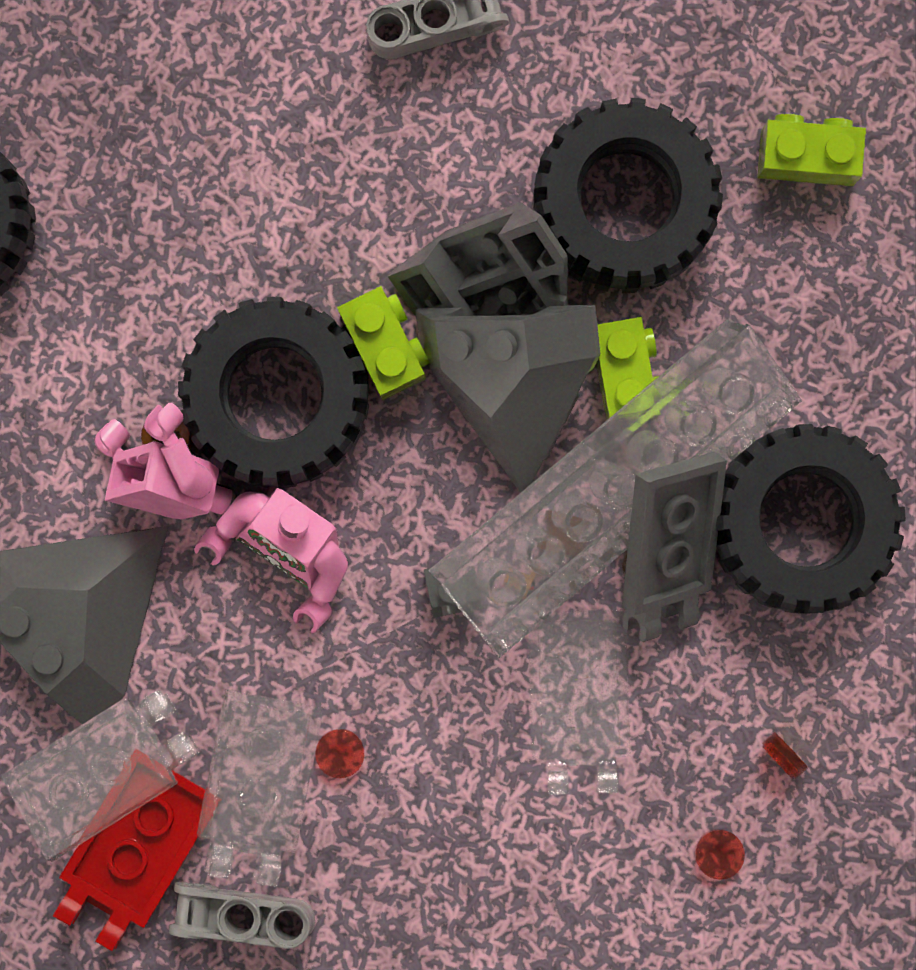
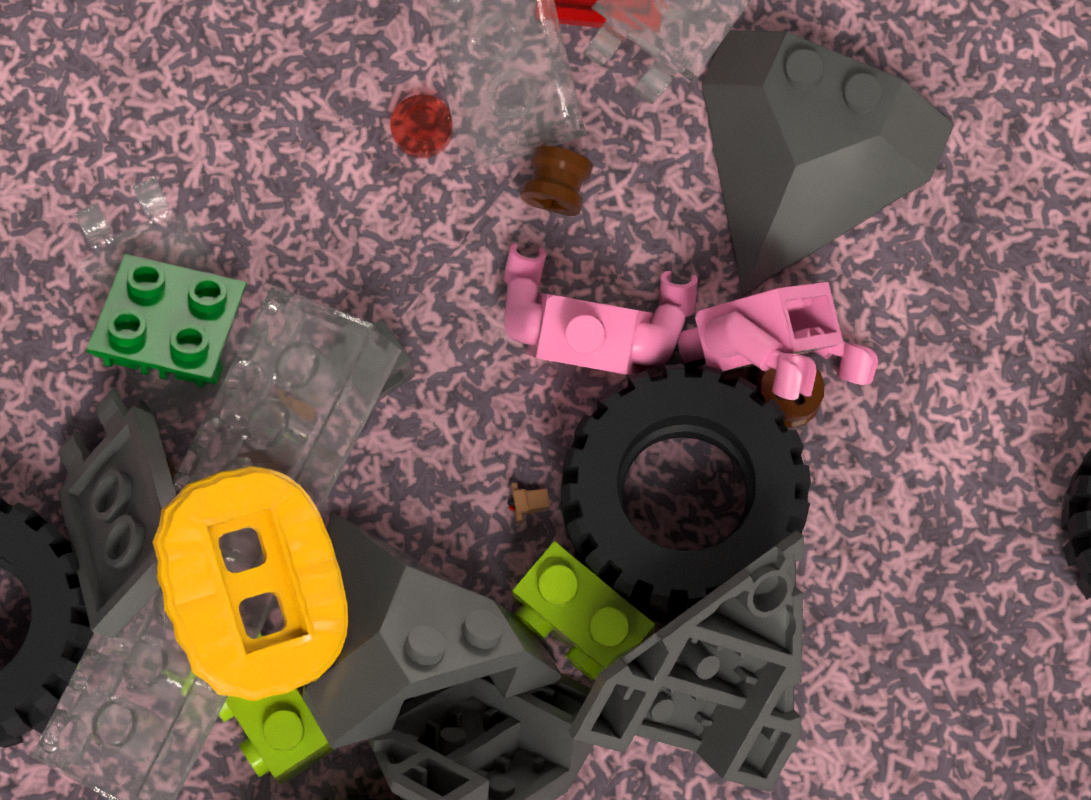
camera: 155 degrees right, 10 degrees down
(261, 665) = (556, 180): none -> reddish brown wheel
(315, 252) = (714, 677): none -> dark grey wedge
(385, 444) = (527, 501): none -> medium nougat piece
(567, 436) = (206, 597): none -> yellow piece
(583, 680) = (167, 320): none -> green hinge

